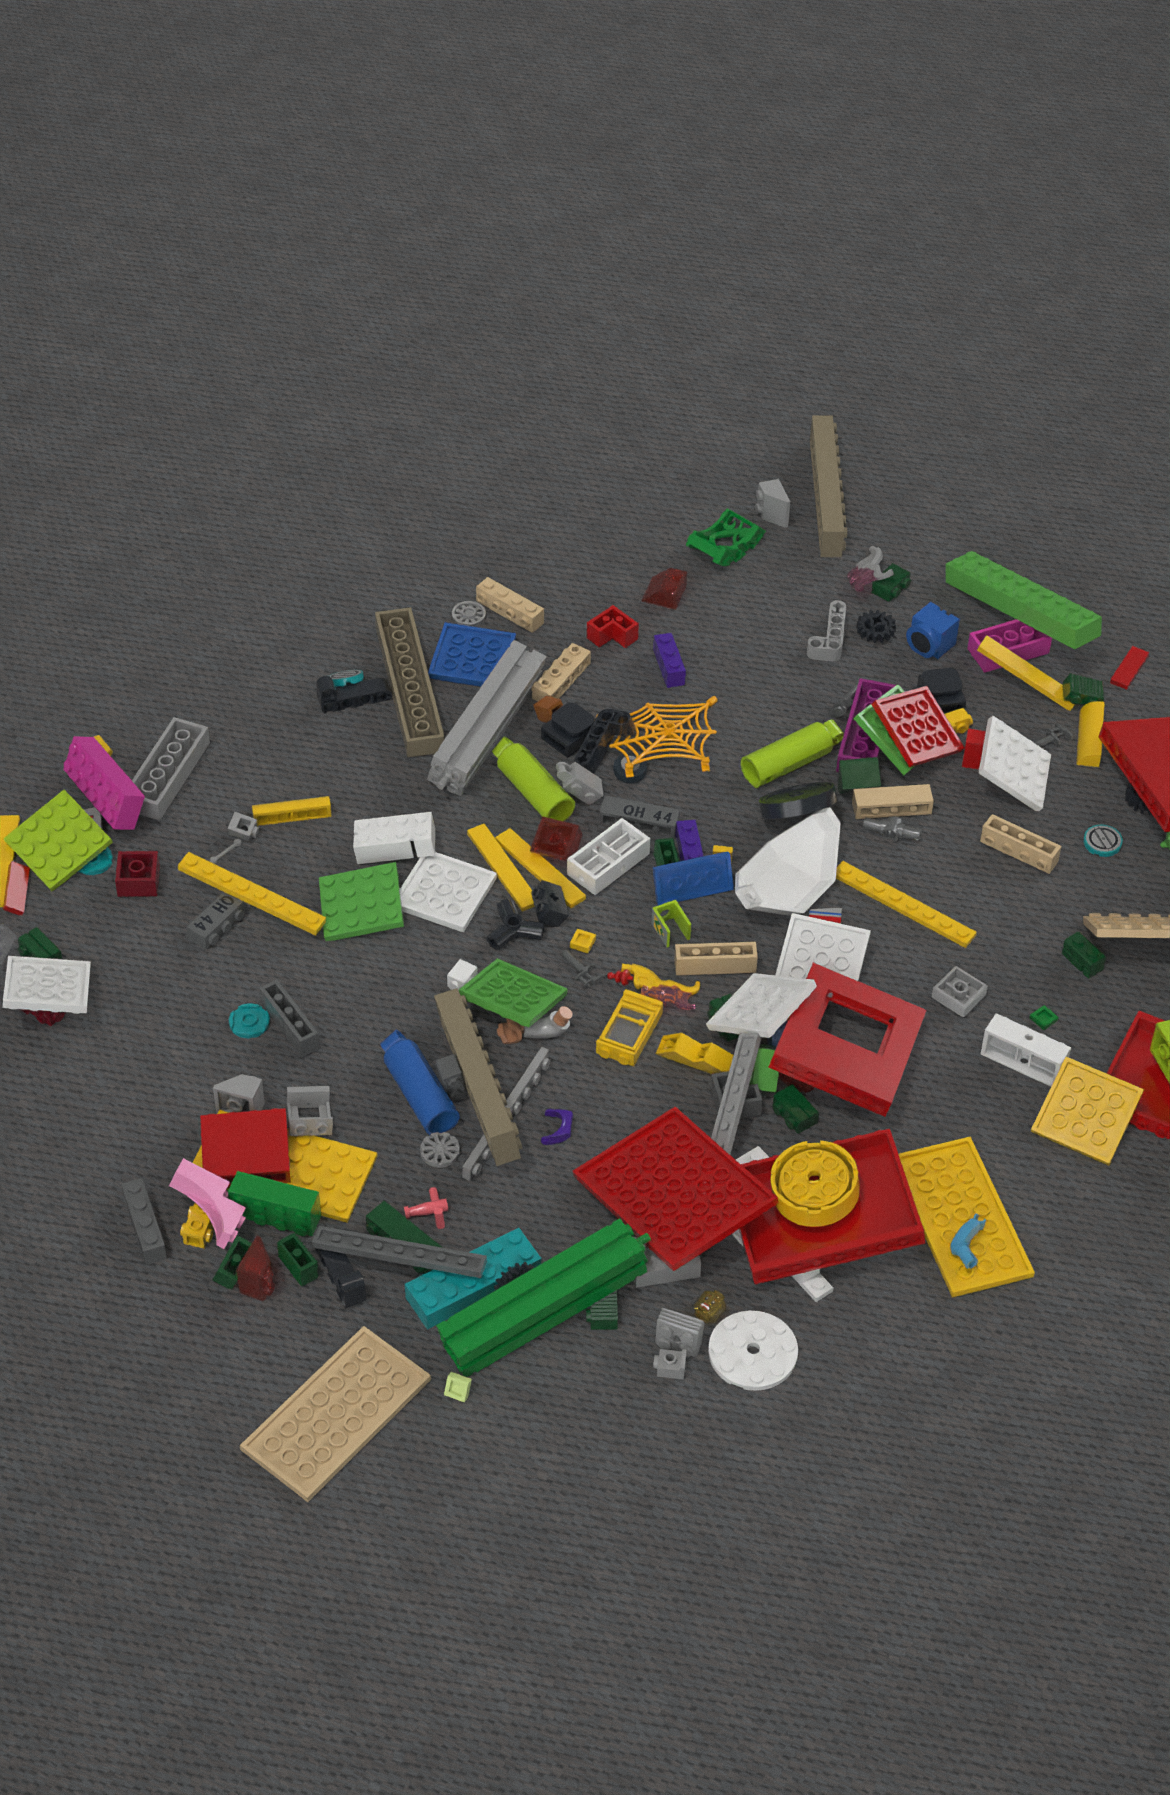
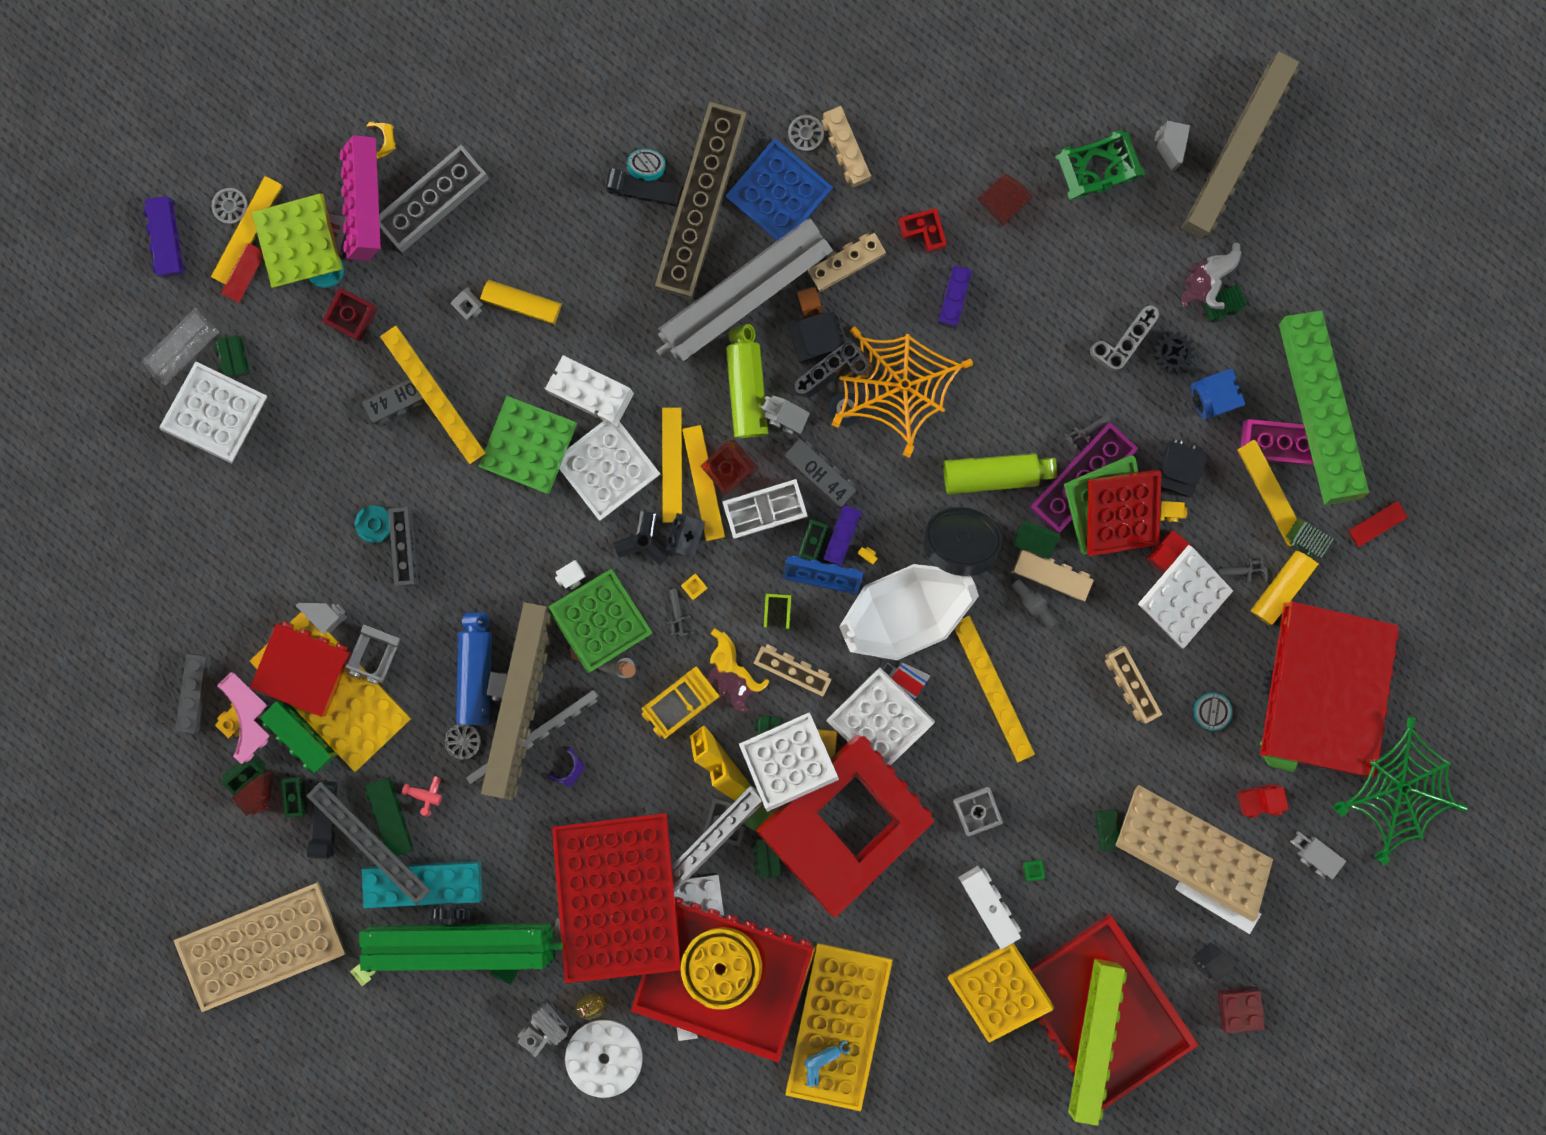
camera: 30 degrees right, 40 degrees up
(237, 842) = (427, 324): light grey hinge -> none
(623, 977) = (704, 640): red hair -> none

